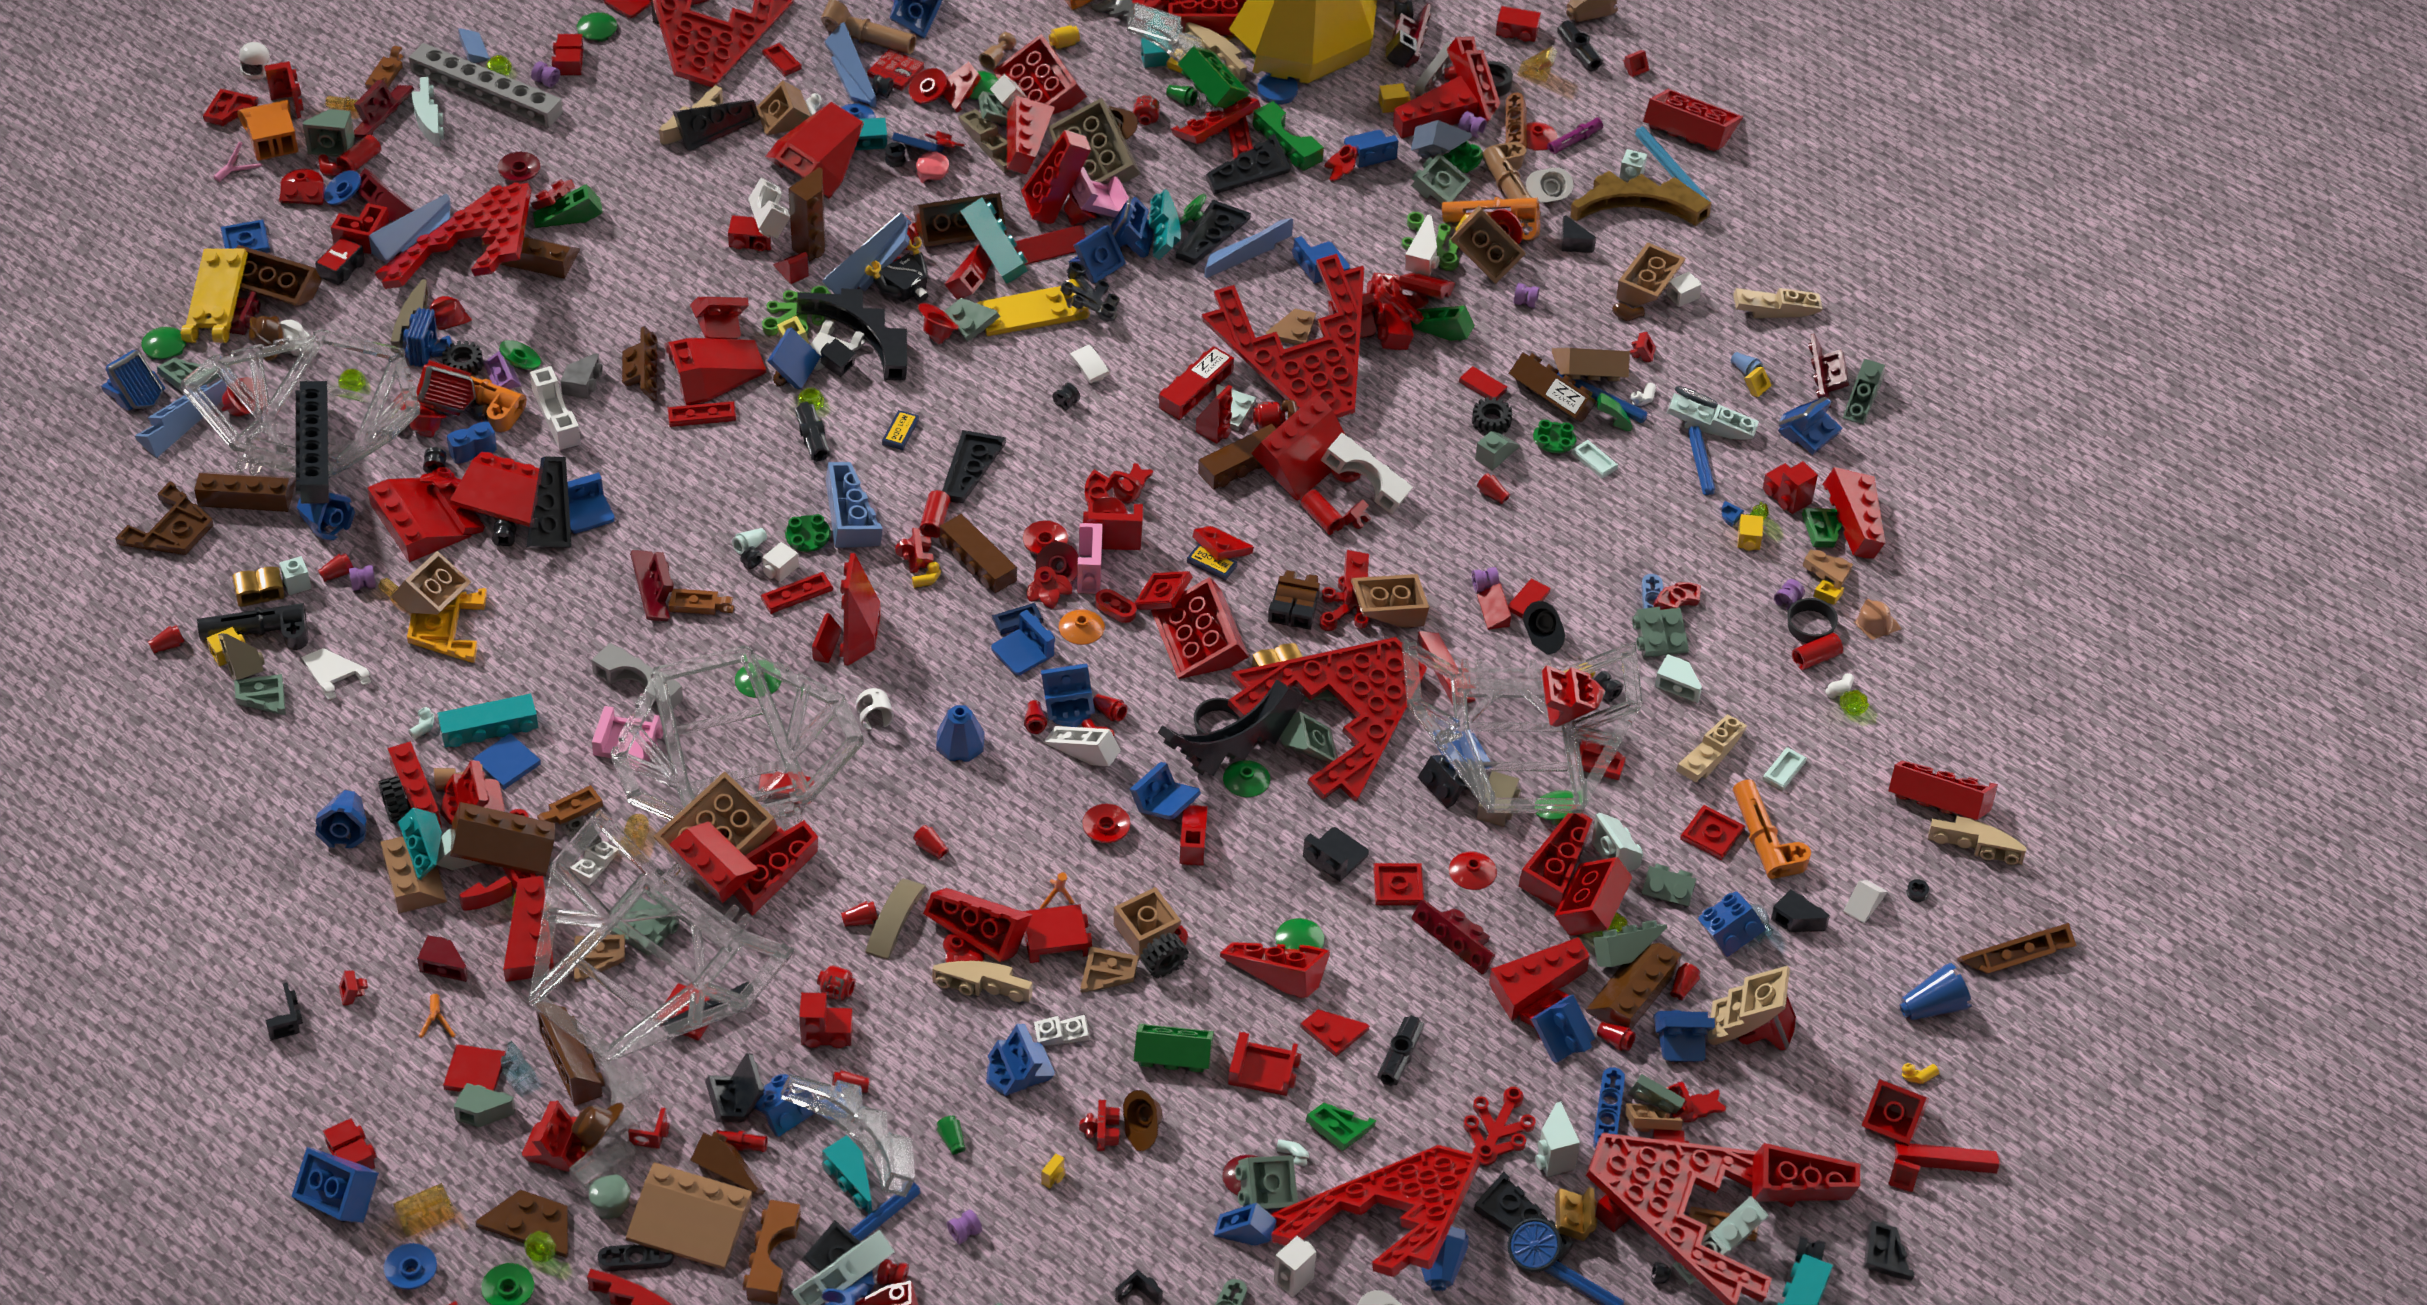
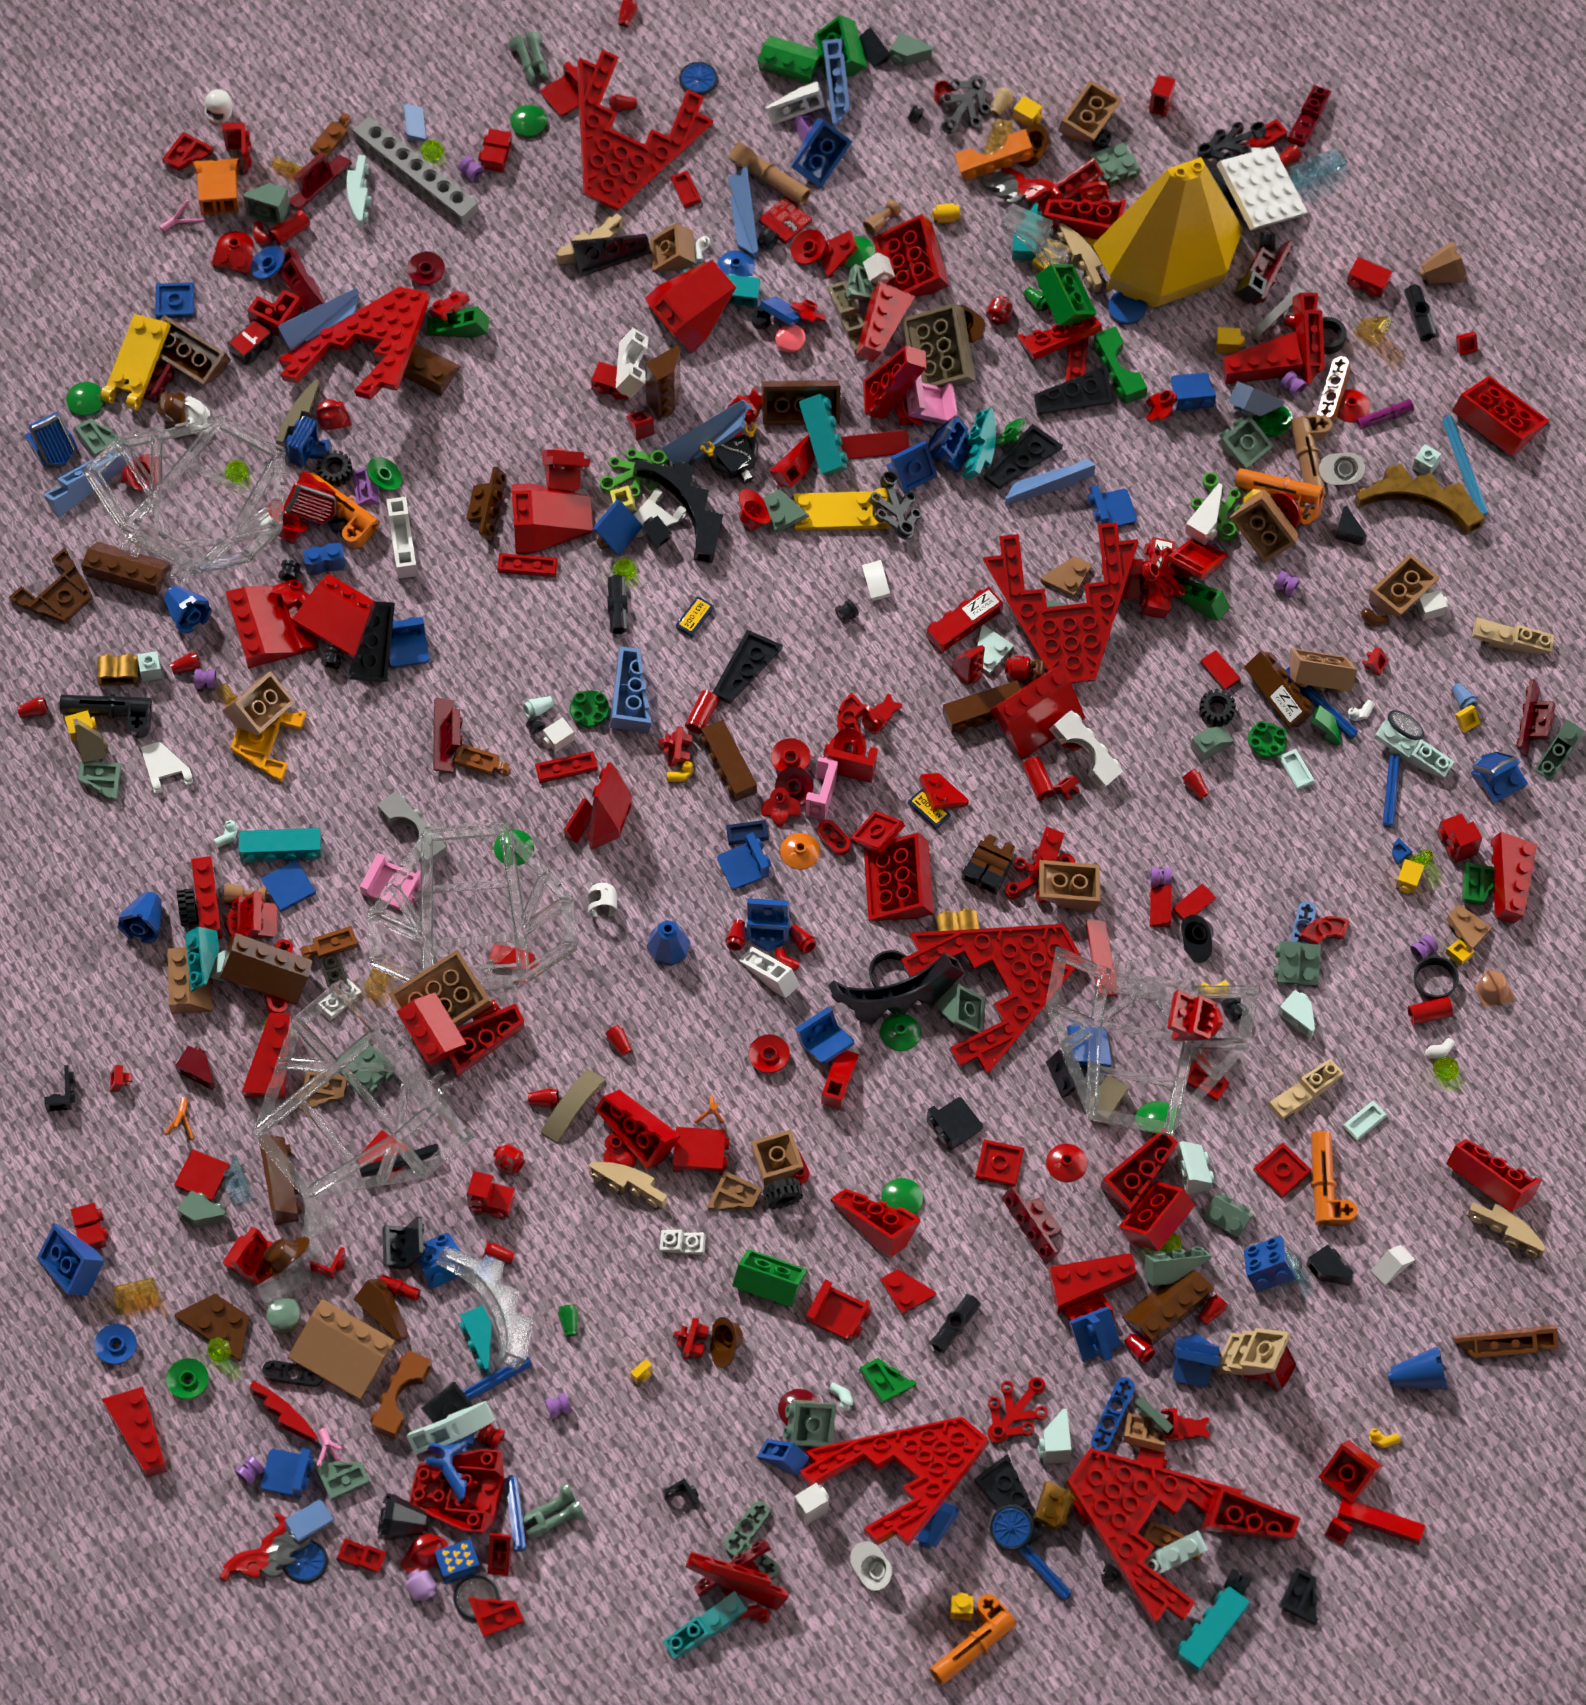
camera: 15 degrees right, 15 degrees up
(312, 442) = (188, 539): black brick -> none
(480, 897) = (238, 1015): red slope -> none
(581, 376) = (431, 506): flat silver slope -> none
(1018, 1063) = (638, 1267): blue piece -> none
(1917, 896) = (1443, 1259): black bush -> none

